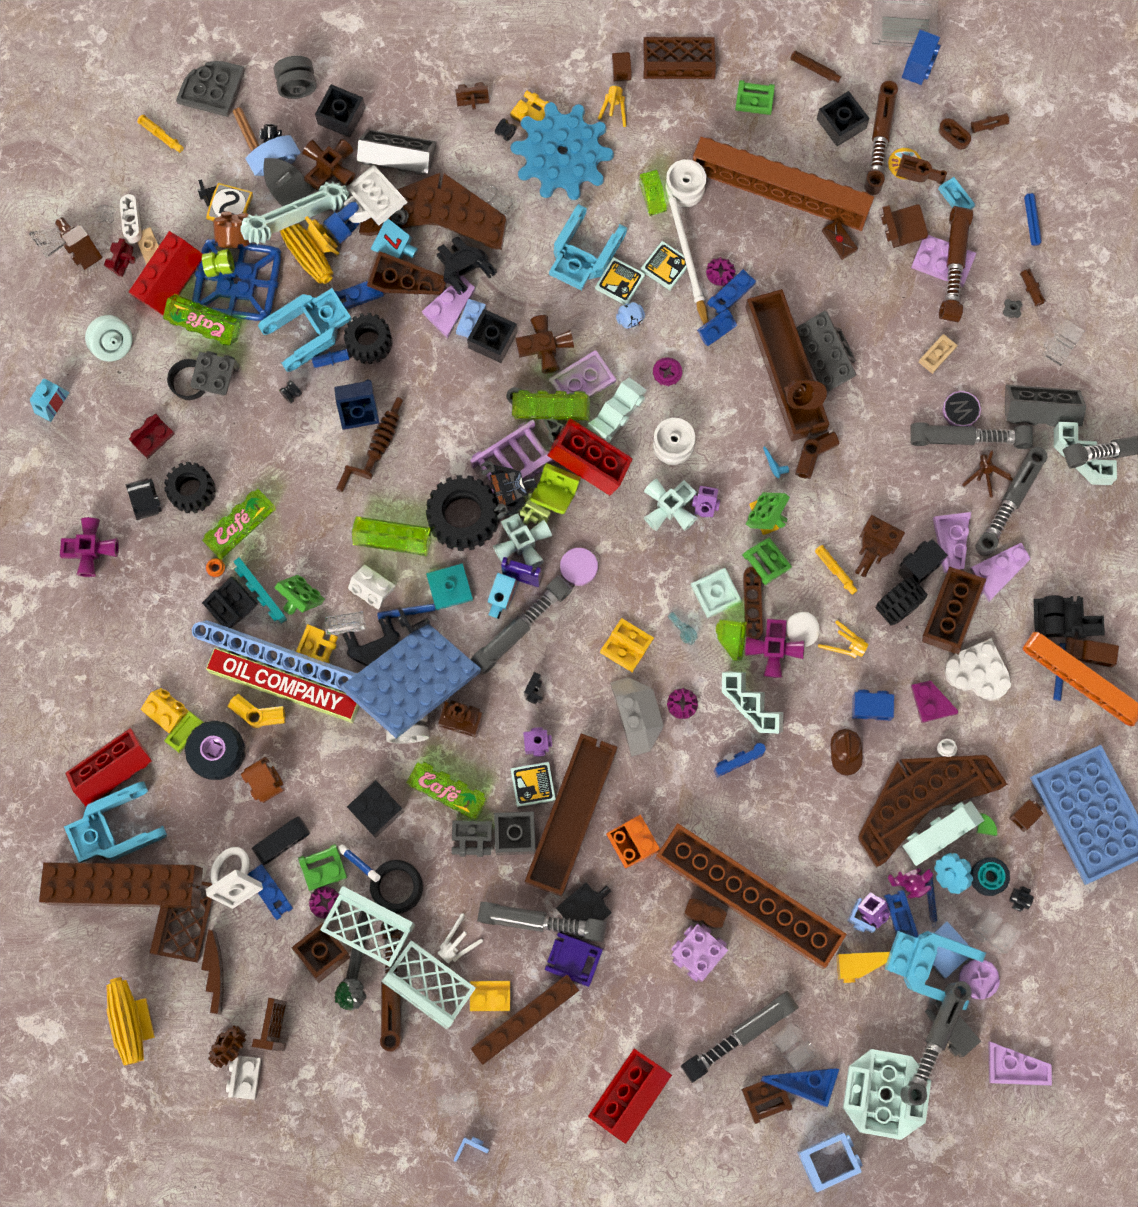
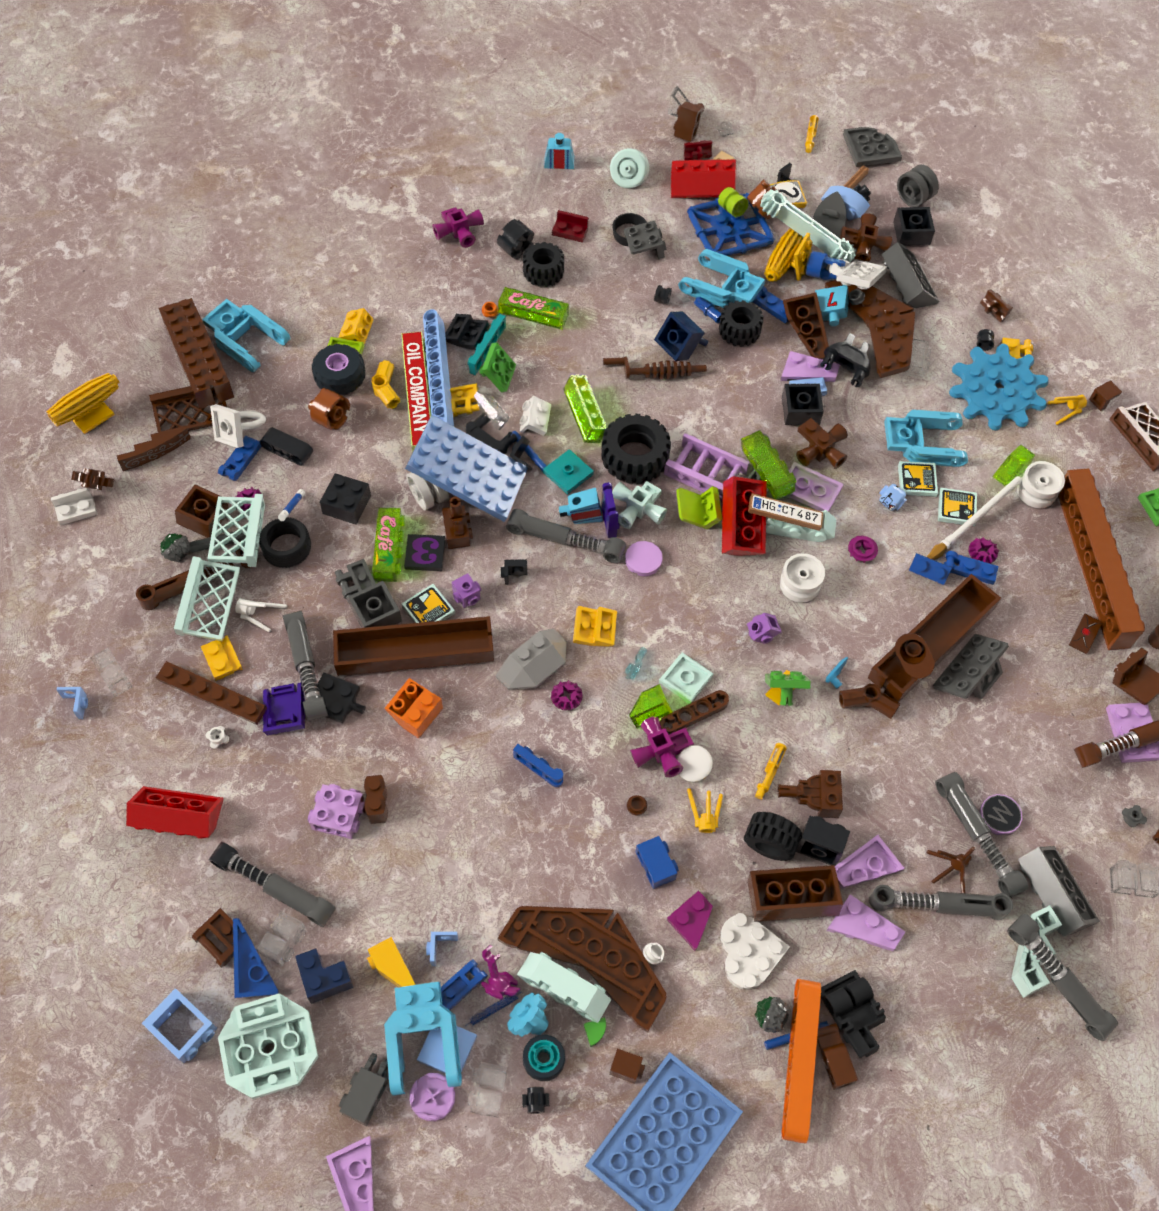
camera: 60 degrees right, 15 degrees down
(108, 767) = (290, 311): red slope -> none
(135, 224) = (731, 143): white beam -> none
(202, 319) = (682, 215): clear neon green brick -> none
(272, 1026) = (104, 499): reddish brown fence -> none
(326, 873) = (273, 490): bright green plate -> none
(471, 761) = (424, 552): none -> black tile
(508, 488) = (675, 466): torso -> none
(534, 512) = (668, 500): yellowish green hips -> none
(573, 1025) = (217, 731): none -> white plate
(609, 419) = (785, 512): none -> tile
(670, 504) = (742, 601): light aqua brick -> none
(750, 703) = (596, 750): light aqua brick -> none
(751, 896) = (410, 834): dark orange brick -> none
(771, 558) = (746, 707): bright green plate -> none
(813, 696) = (637, 805): none -> reddish brown plate
(846, 752) = (599, 861): reddish brown piece -> none
(846, 1030) = (321, 981): none -> dark blue brick
(874, 910) = (449, 956): medium lavender brick -> none
(936, 1041) = (340, 1069): dark grey piece -> none
(937, 353) = (1039, 766): tan plate -> none
(1039, 682) = (772, 1014): none -> dark grey piece

